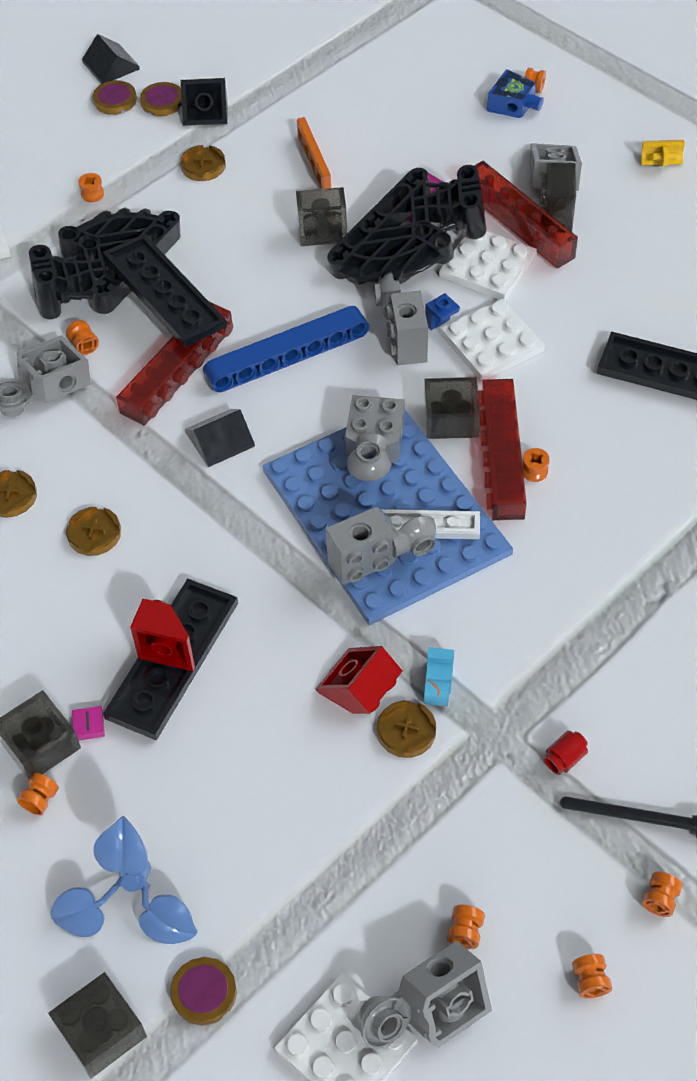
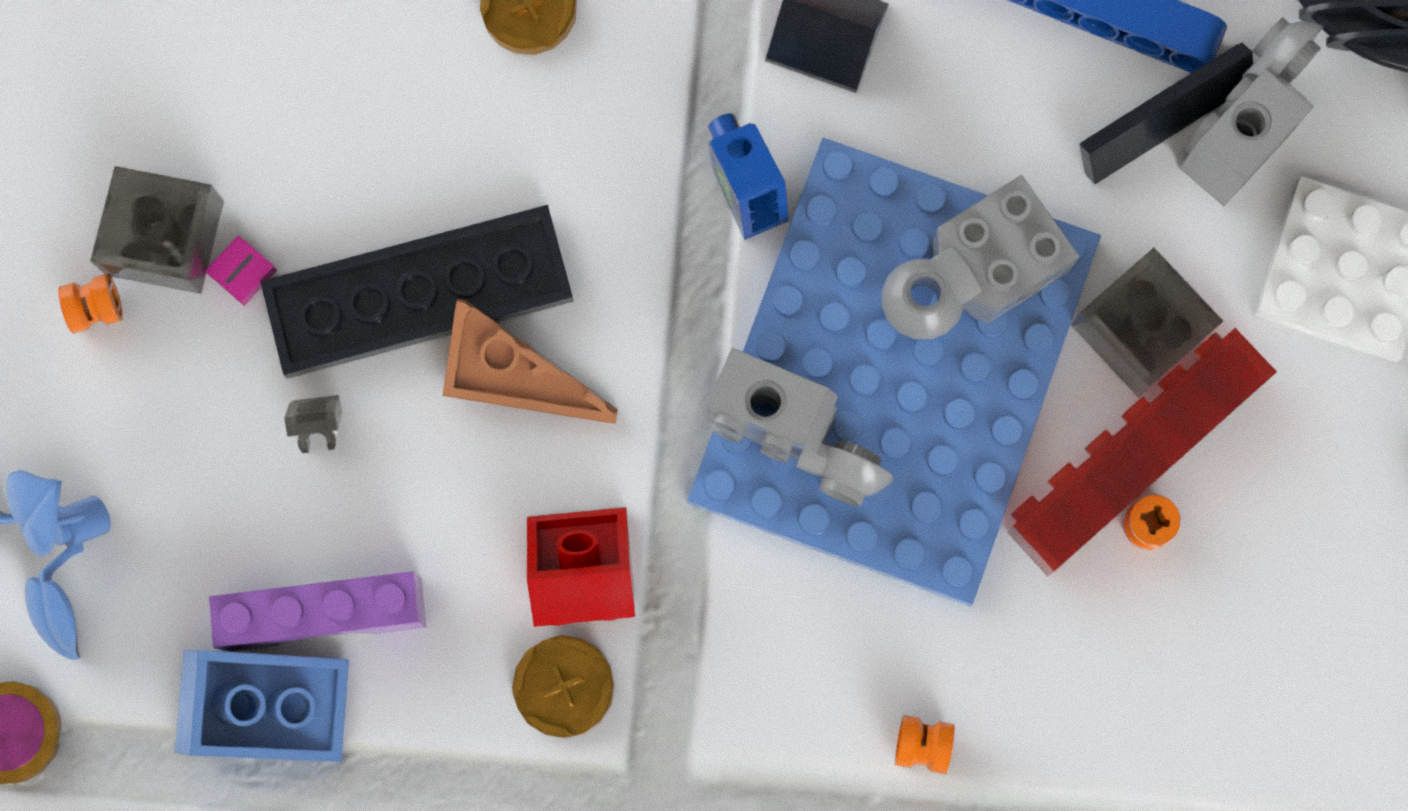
camera: 50 degrees right, 25 degrees up
(161, 635) = (410, 262): red slope -> none
(186, 738) = (314, 416): none -> clear smoke tile
(241, 647) = (501, 369): none -> nougat wing
(253, 497) = (747, 176): none -> blue torso
(260, 821) = (317, 610): none -> medium lavender arch
(296, 860) = (261, 706): none -> medium blue slope
(372, 350) = (1164, 114): none -> black tile
(438, 676) = (667, 671): medium azure leg -> none
(440, 310) = (1325, 155): blue bracket -> none
(448, 523) = (904, 453): white tile -> none
(558, 605) = (936, 747): none -> orange wheel

